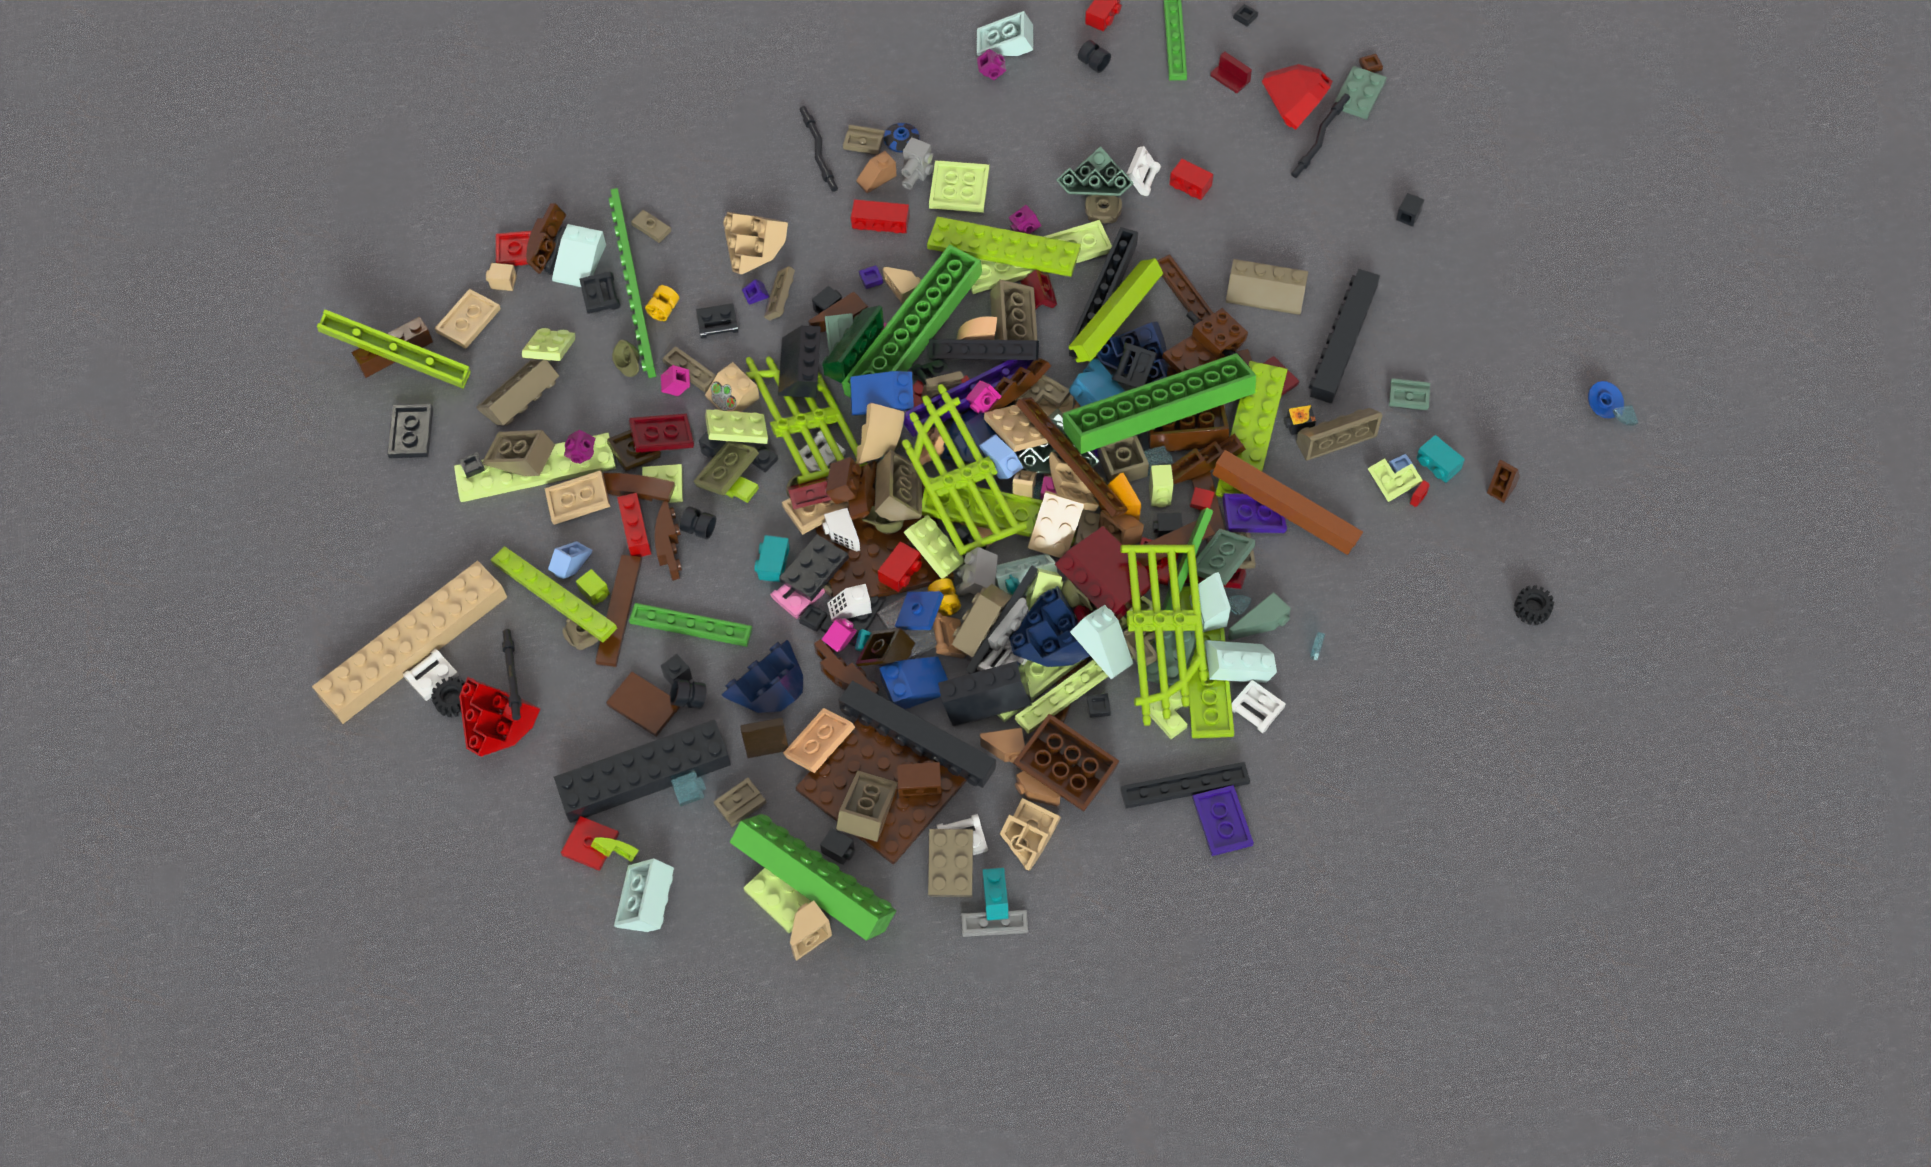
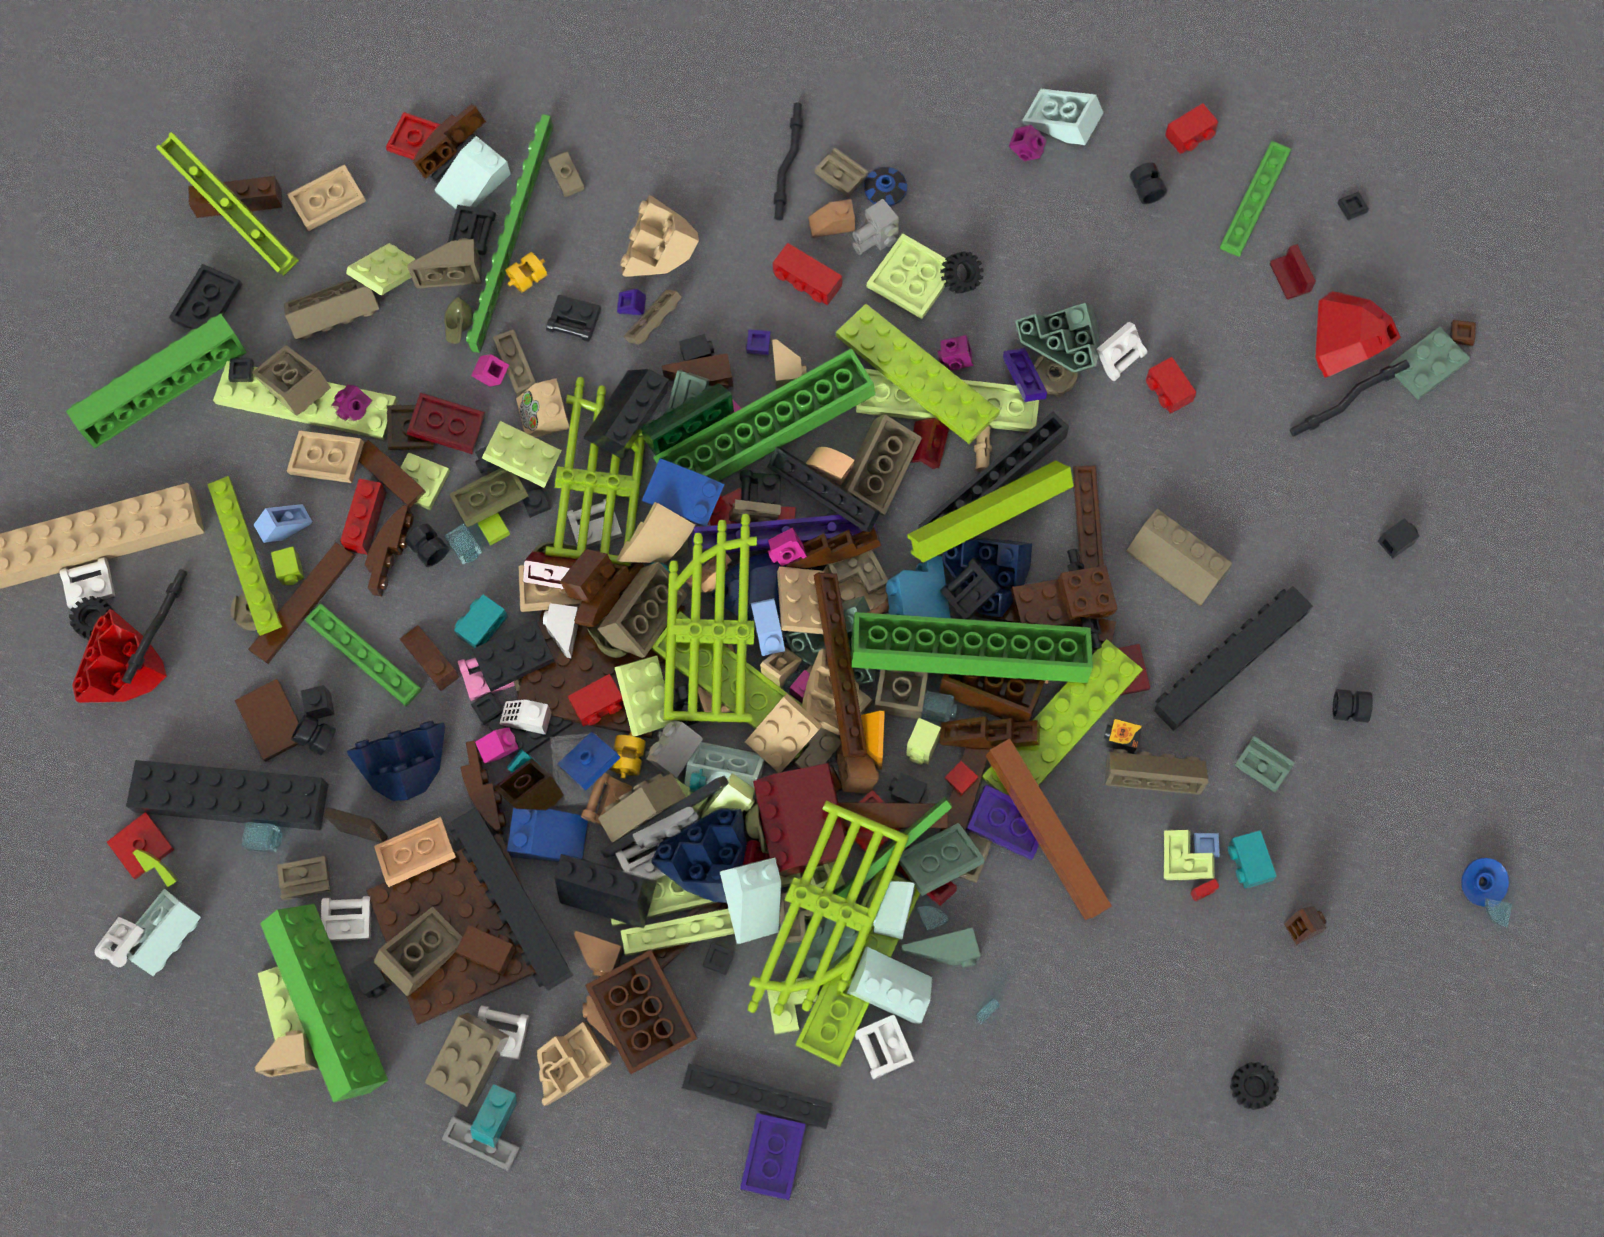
camera: 30 degrees right, 10 degrees up
(406, 501) = (156, 381): none -> bright green brick
(501, 276) = (383, 165): tan brick -> none
(599, 322) = (448, 266): none -> dark tan slope
(614, 910) = (122, 934): none -> white plate
(726, 510) = (463, 544): none -> clear light blue brick
(747, 601) = (429, 658): none -> reddish brown slope
(797, 819) = (347, 926): none -> white plate
(1002, 163) = (972, 268): none -> black tyre
(1082, 279) = (983, 449): none -> tan pin
(1083, 214) = (1024, 375): none -> dark purple plate
(1445, 328) = (1352, 705): none -> black wheel

